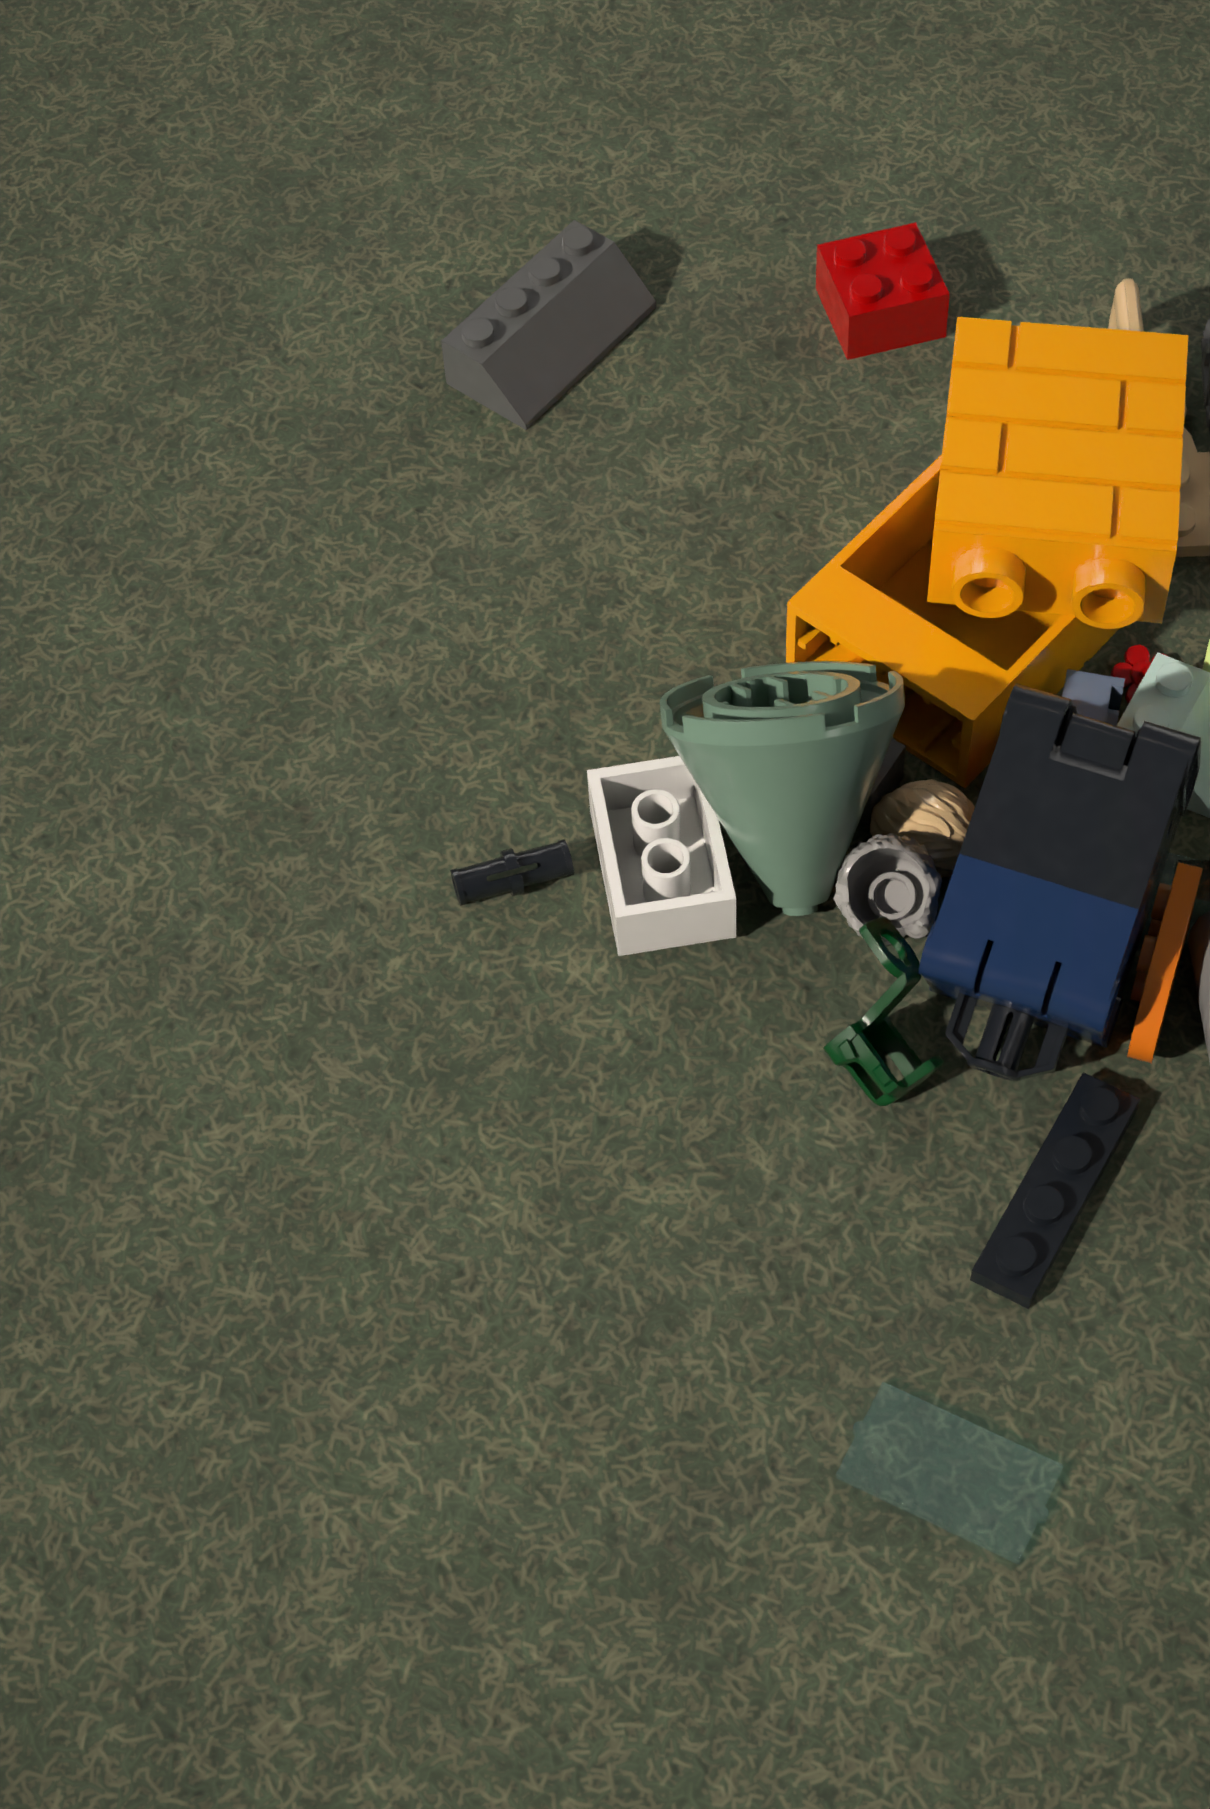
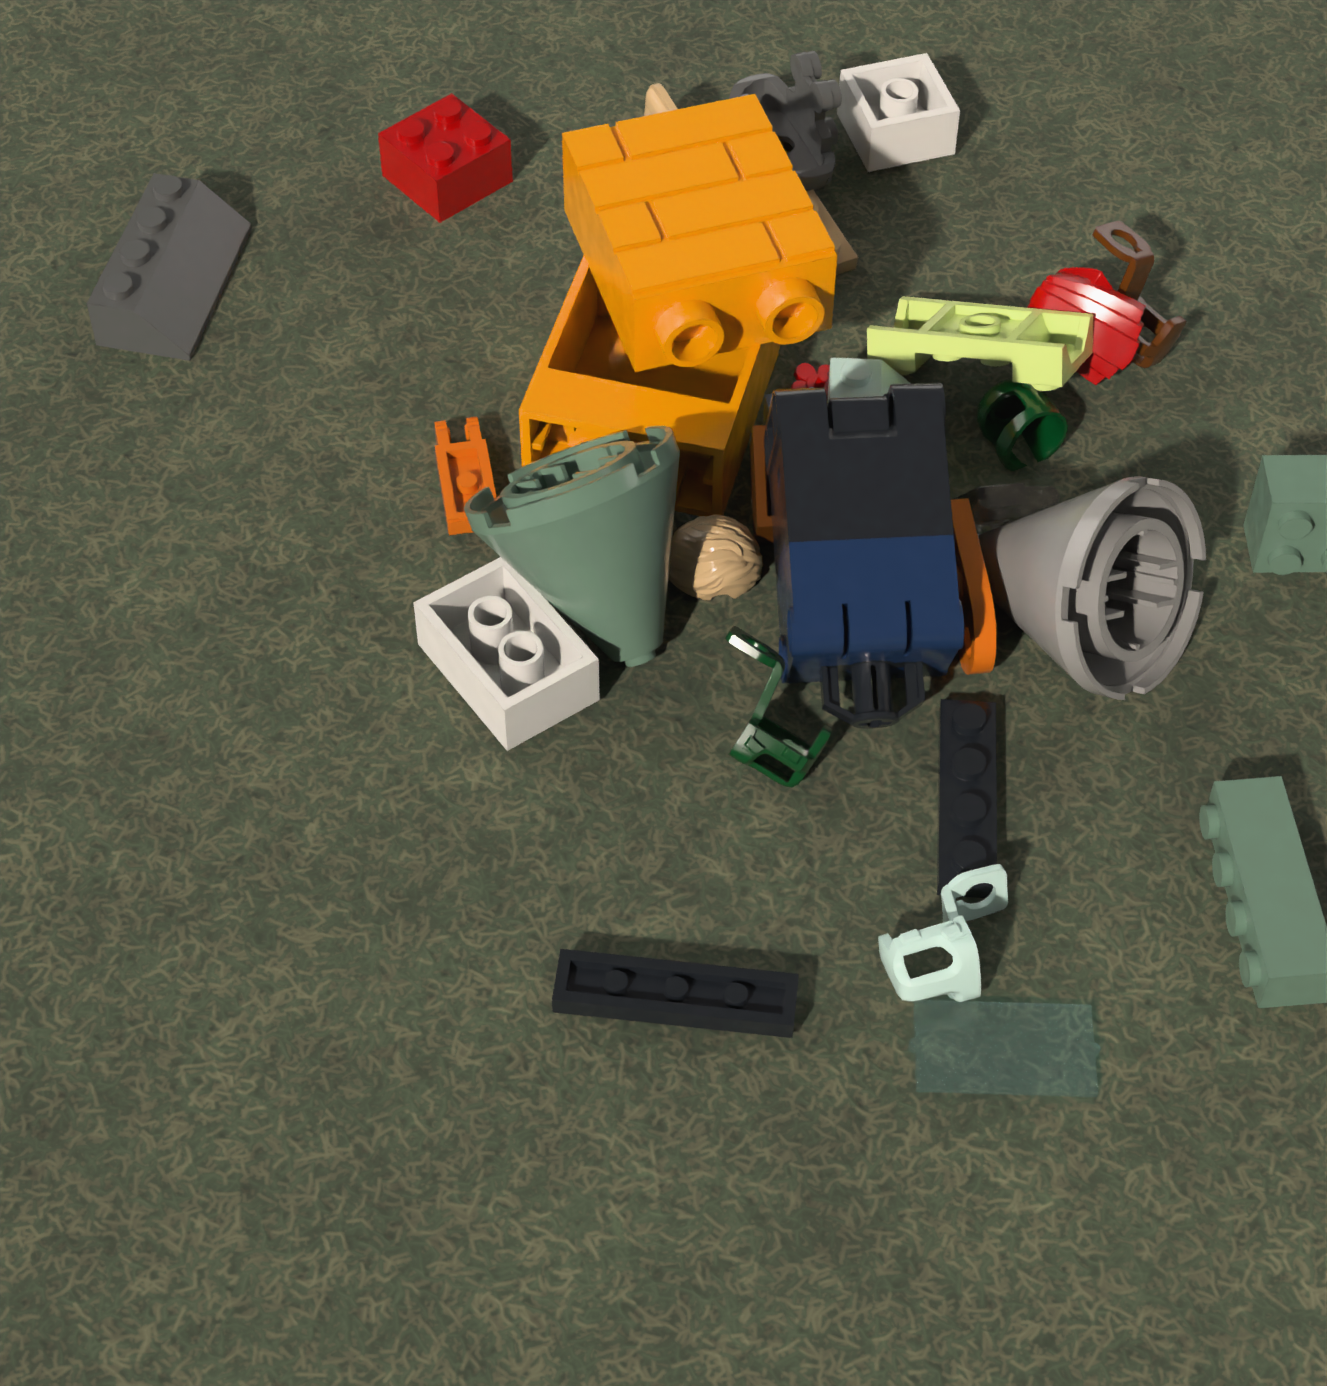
camera: 30 degrees left, 5 degrees down
(551, 861) = (351, 735): black pin -> none
(648, 1276) = (675, 993): none -> black plate
(727, 636) = (462, 471): none -> orange hinge
(892, 880) = (705, 608): light grey hair -> none
(942, 1337) = (963, 977): none -> light aqua piece

